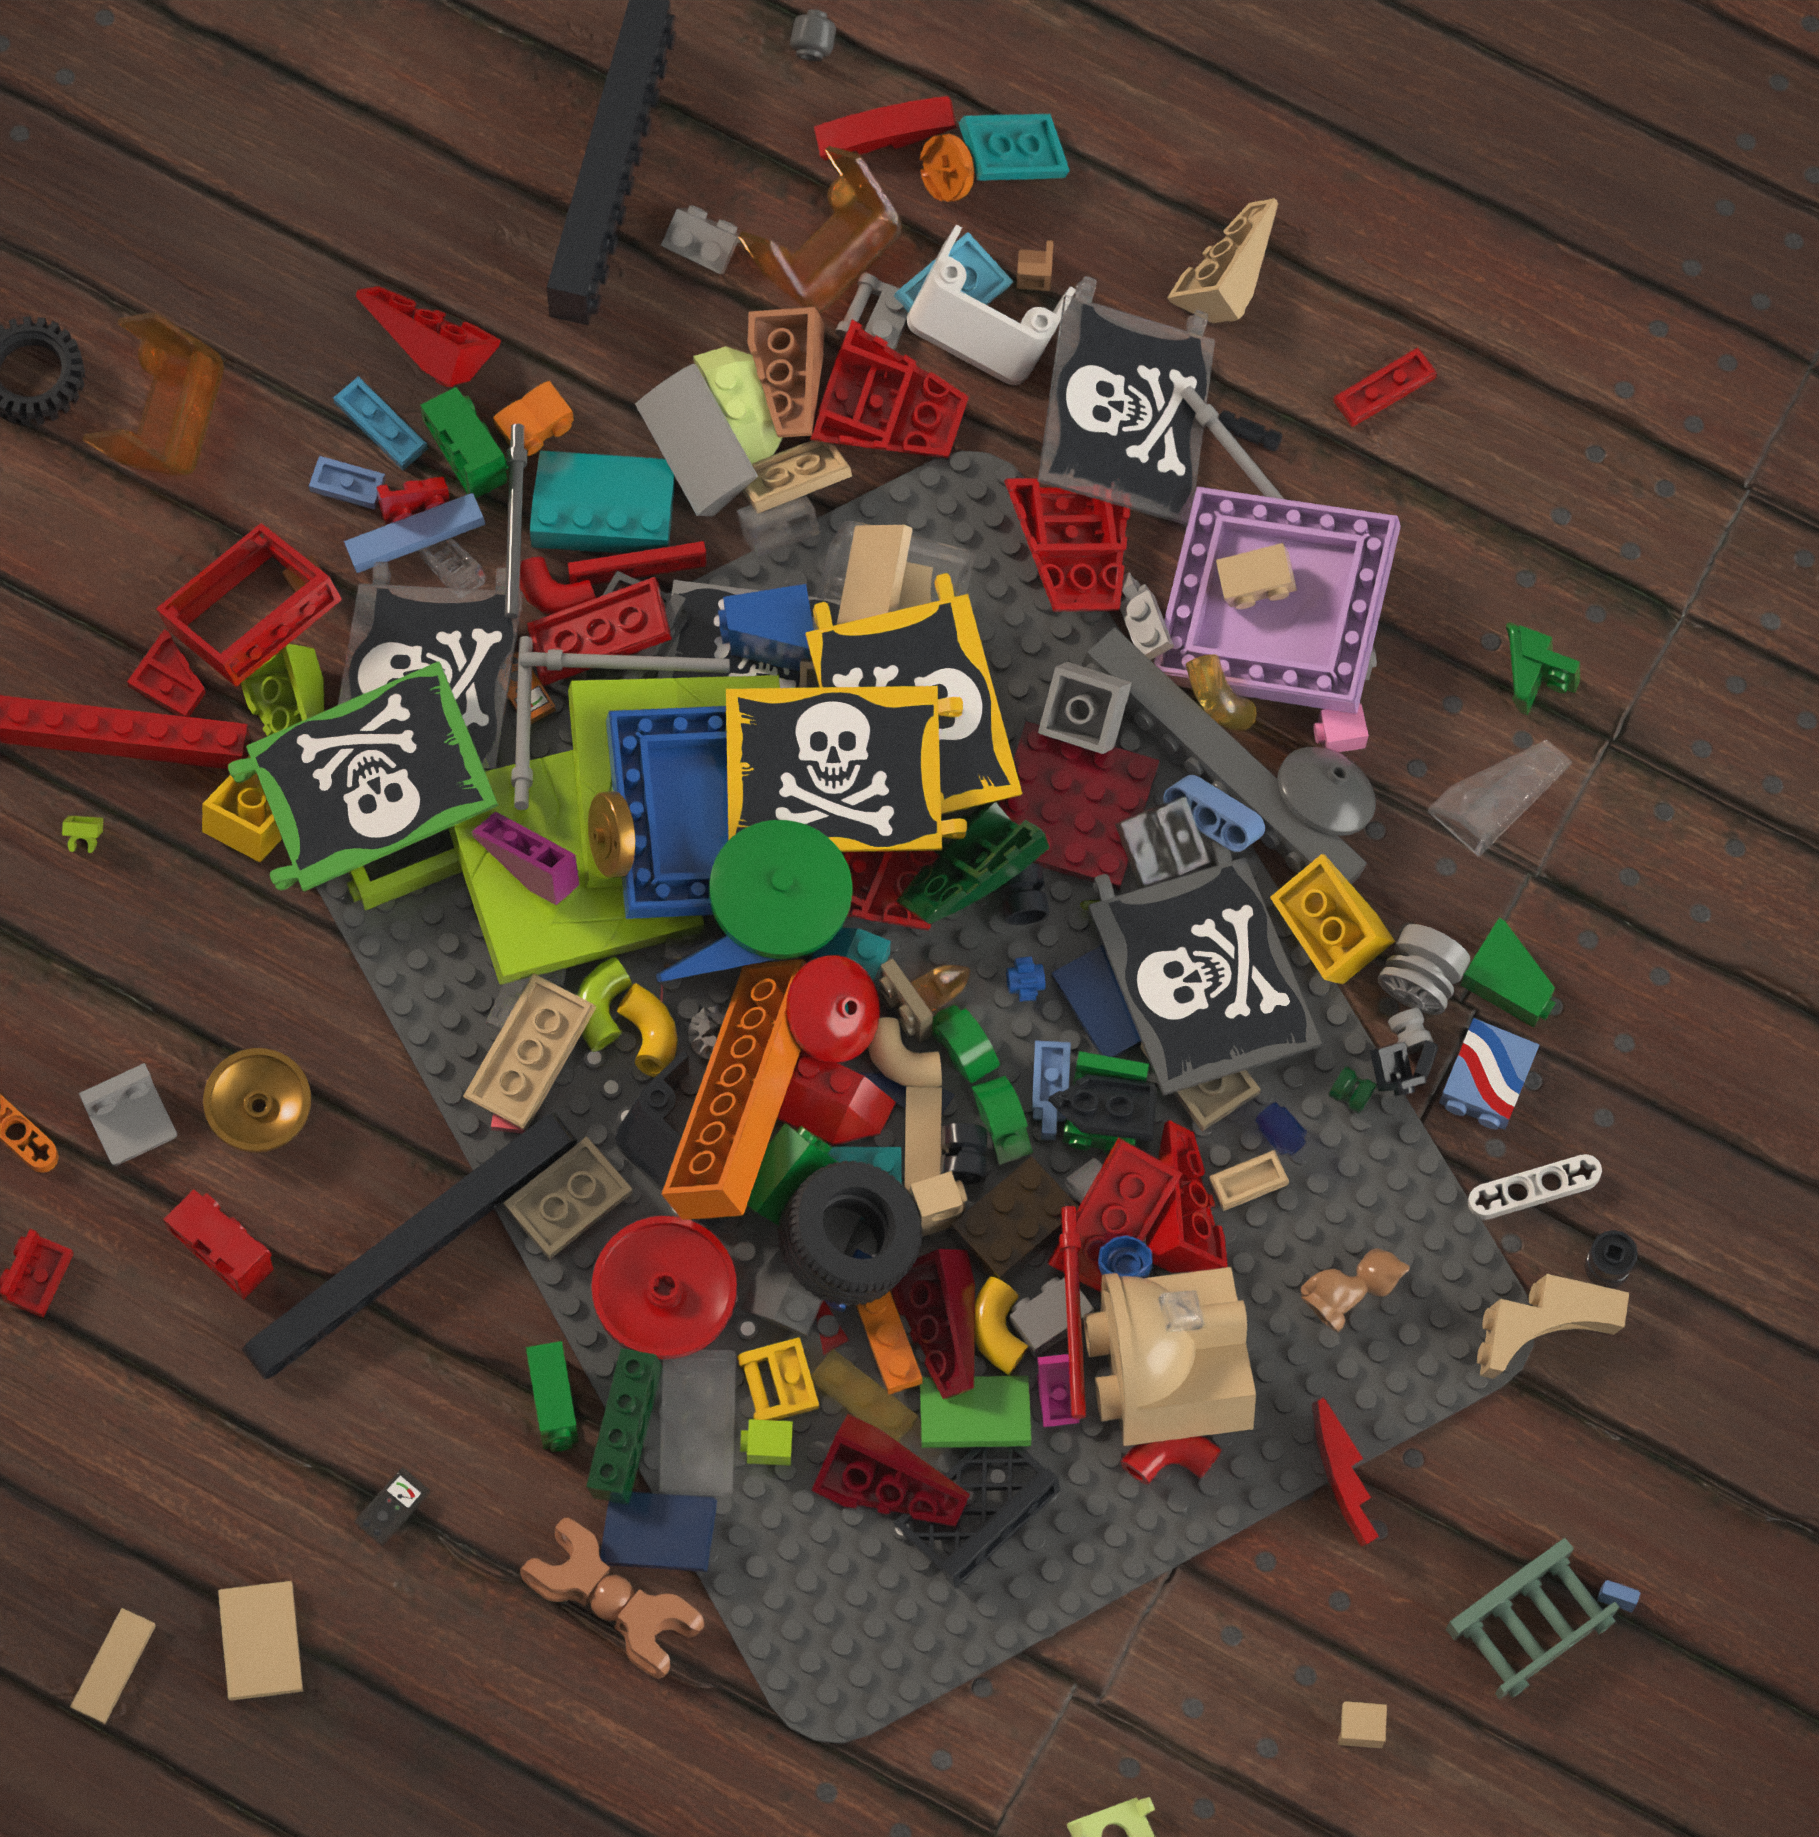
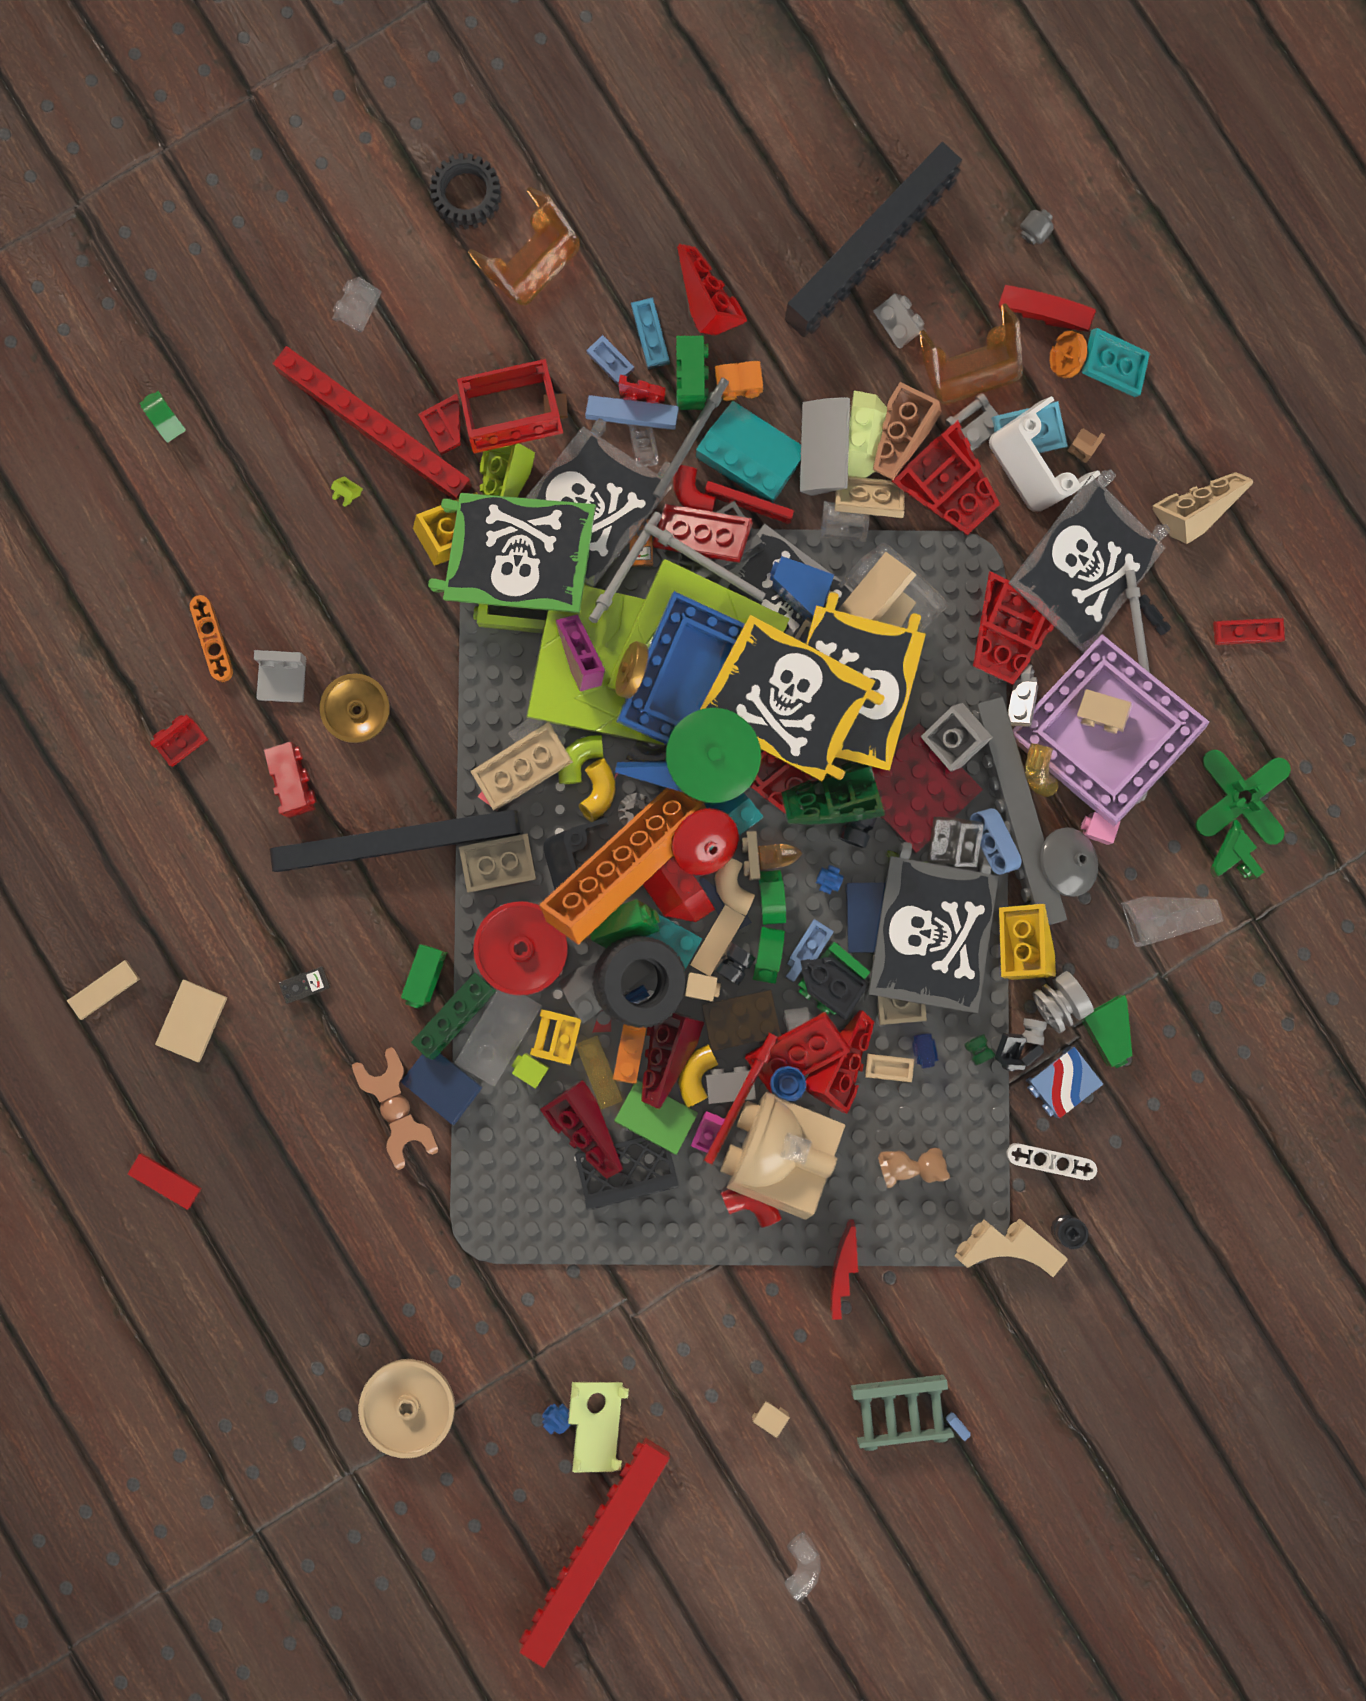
camera: 25 degrees right, 15 degrees up
(1495, 612) = (1231, 806): none -> green piece

